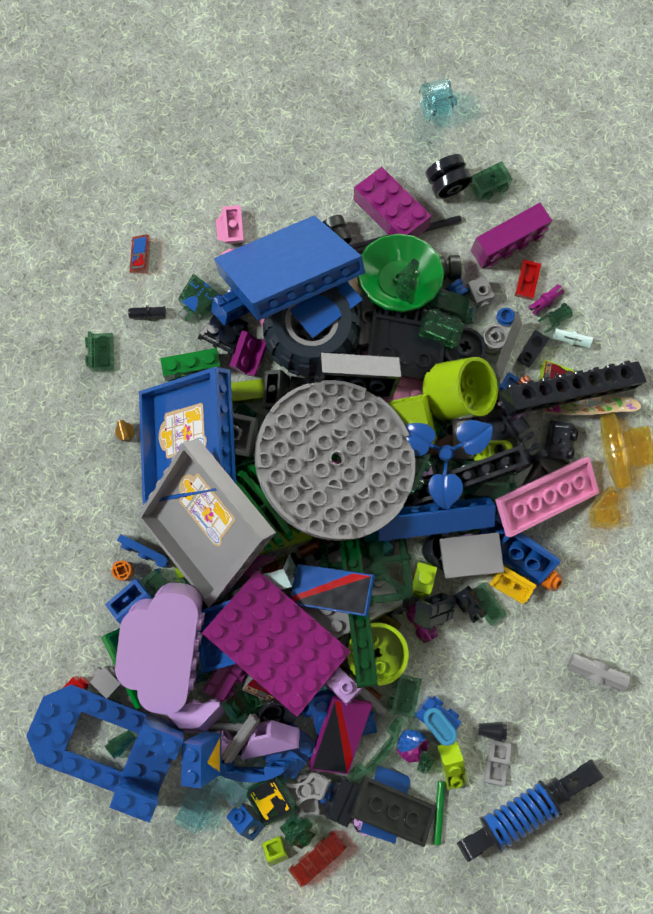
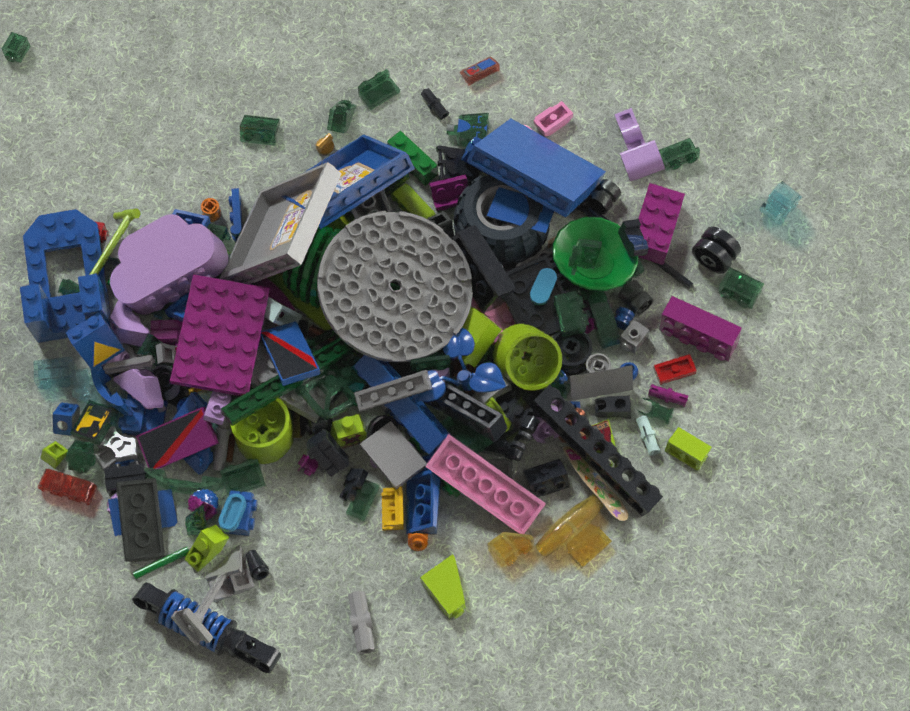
camera: 65 degrees right, 15 degrees down
(68, 479) = (259, 130): none -> clear green bracket
(83, 650) = (127, 216): none -> lime bar
(106, 399) = (341, 116): none -> clear green slope
(251, 698) = (165, 354): none -> light grey tile
(318, 180) = (641, 157): none -> lavender plate
(333, 148) = (679, 153): none -> clear green bracket
(402, 334) = (543, 286): none -> dark azure tile
(409, 233) = (633, 238): none -> black leg
(428, 521) = (393, 390): none -> light grey tile
(483, 761) = (191, 622): none -> light grey piece
(604, 314) = (687, 448): none -> lime hinge
(609, 583) = (445, 587): none -> lime slope

